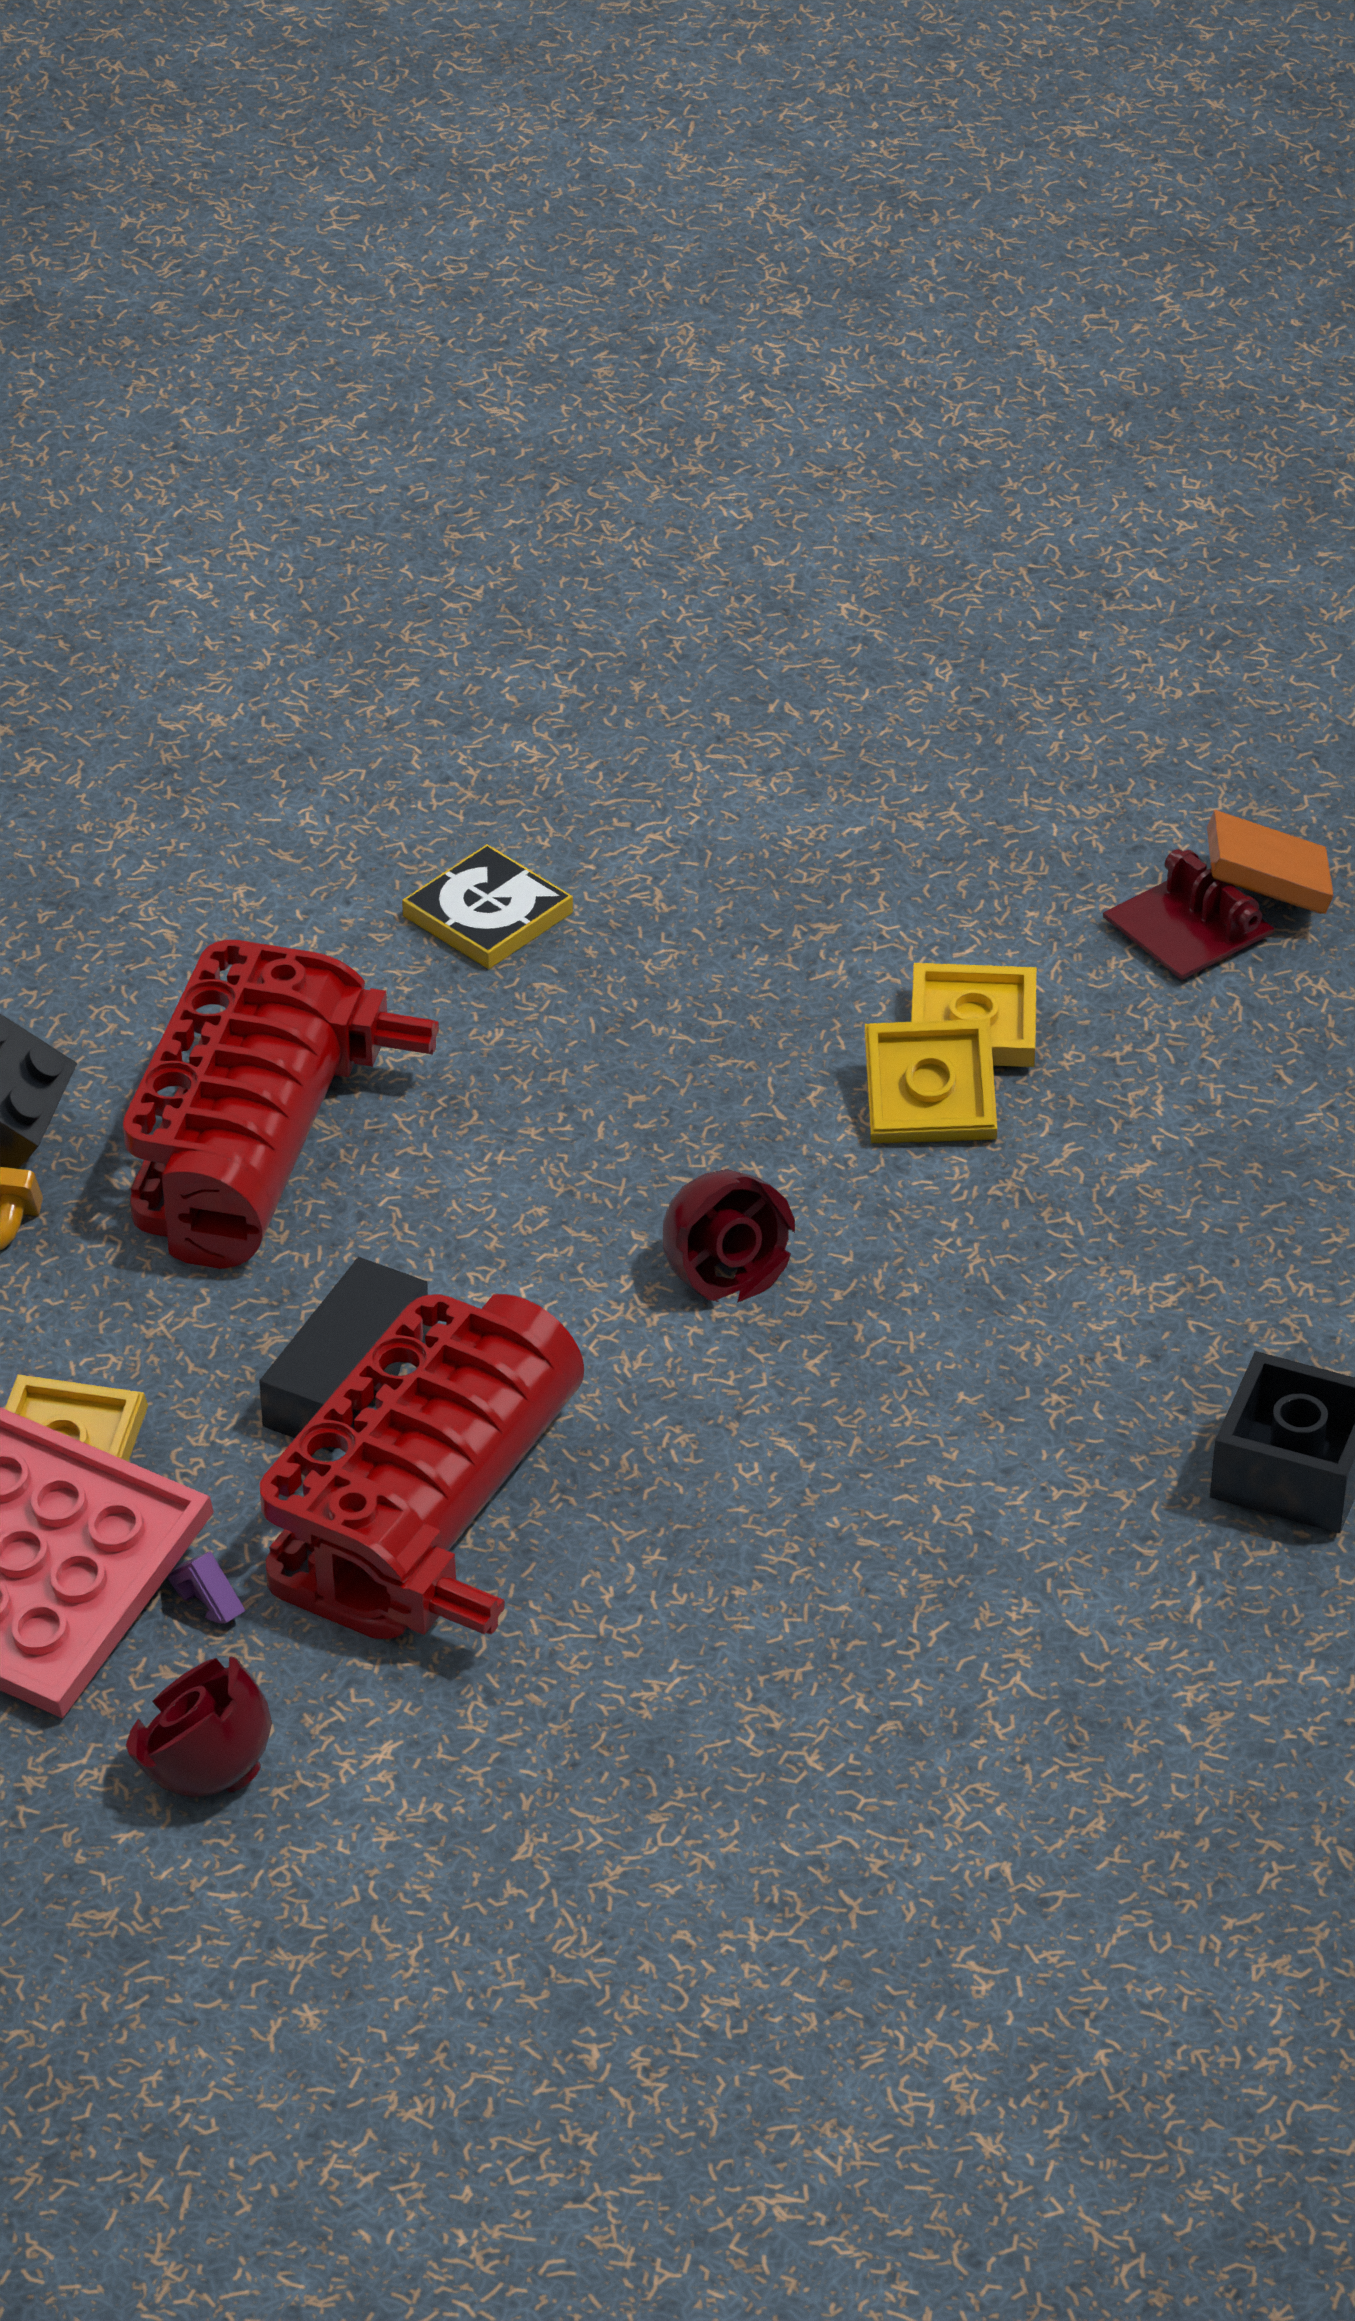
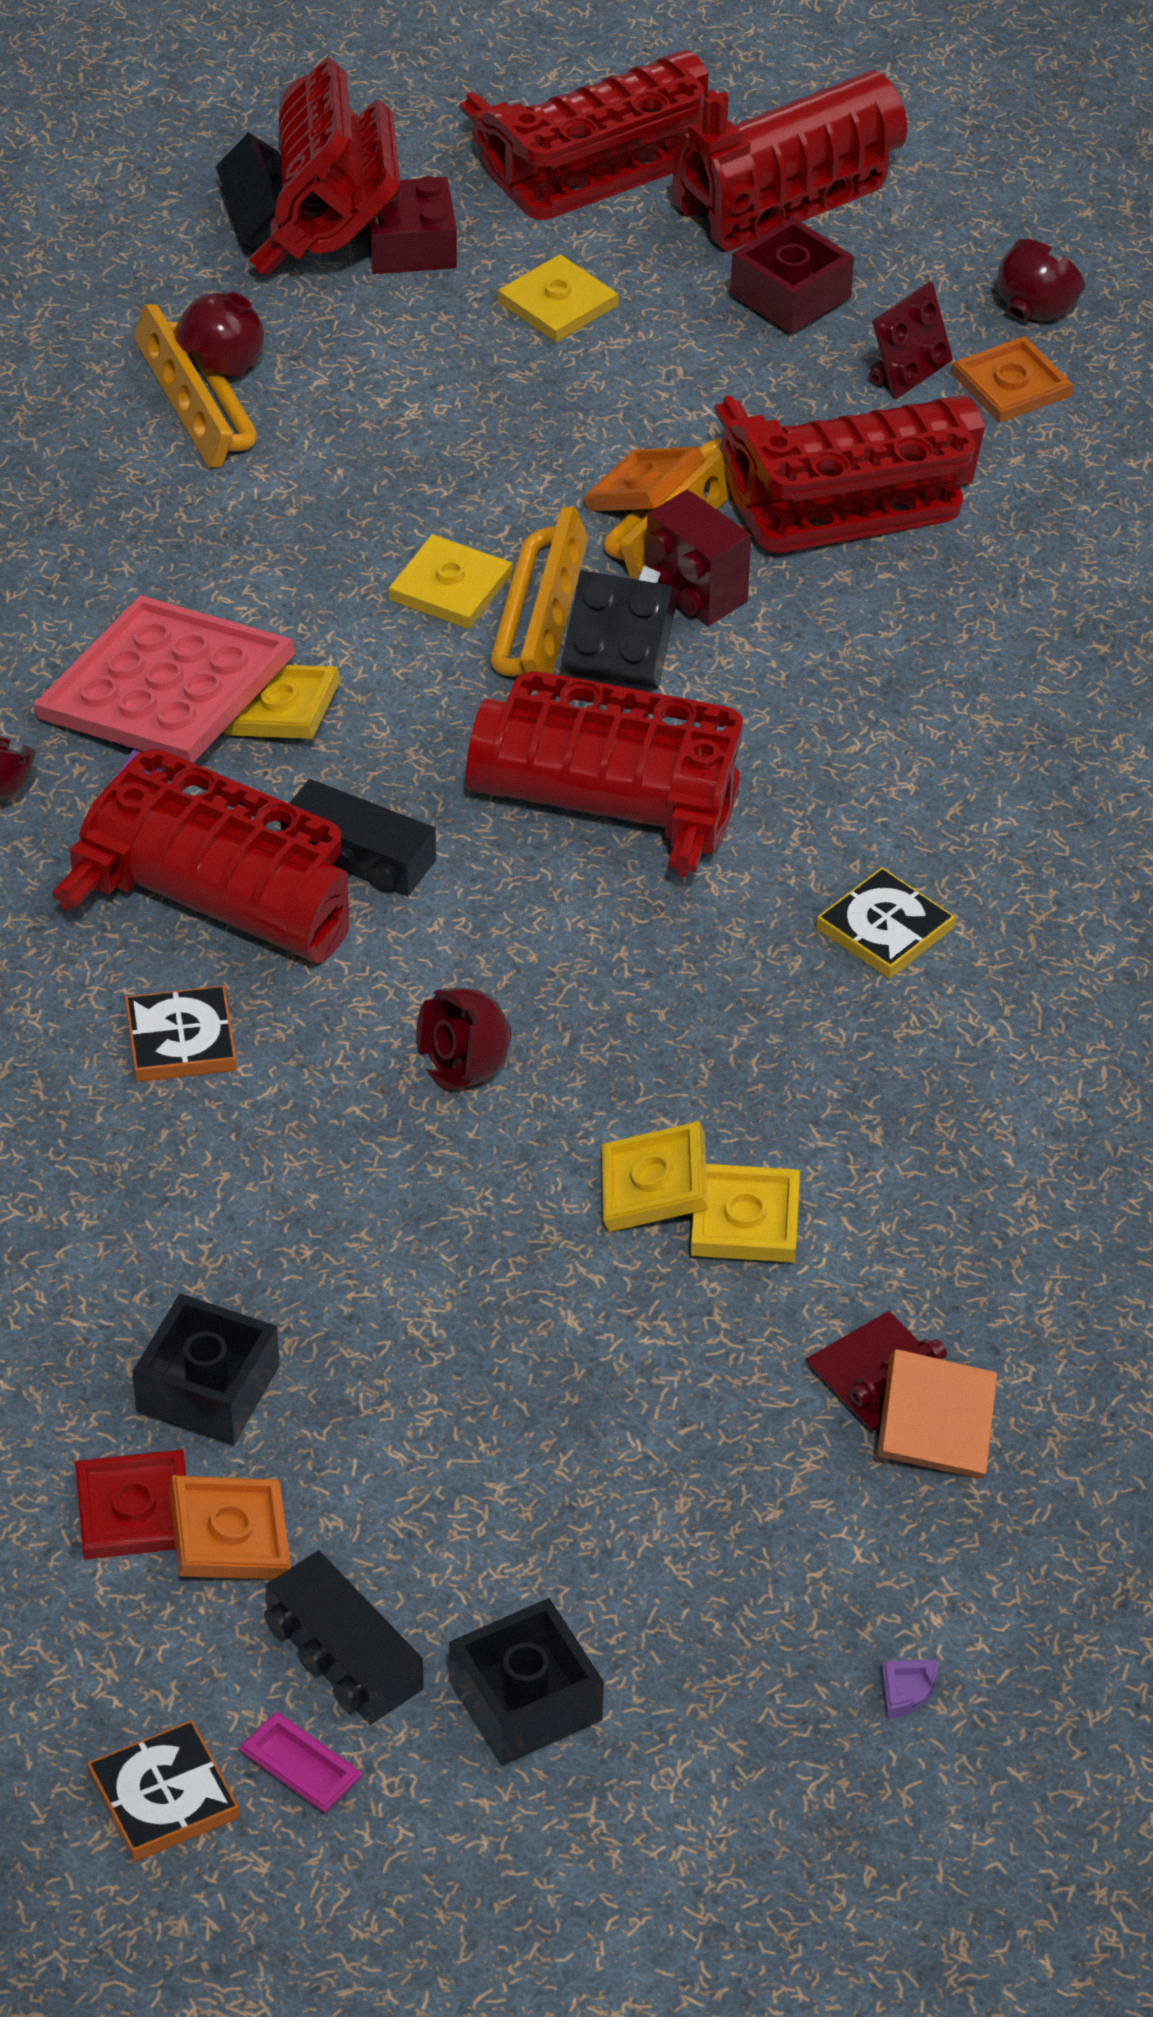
camera: 90 degrees right, 5 degrees up
(696, 1526) = (180, 1033): none -> tile

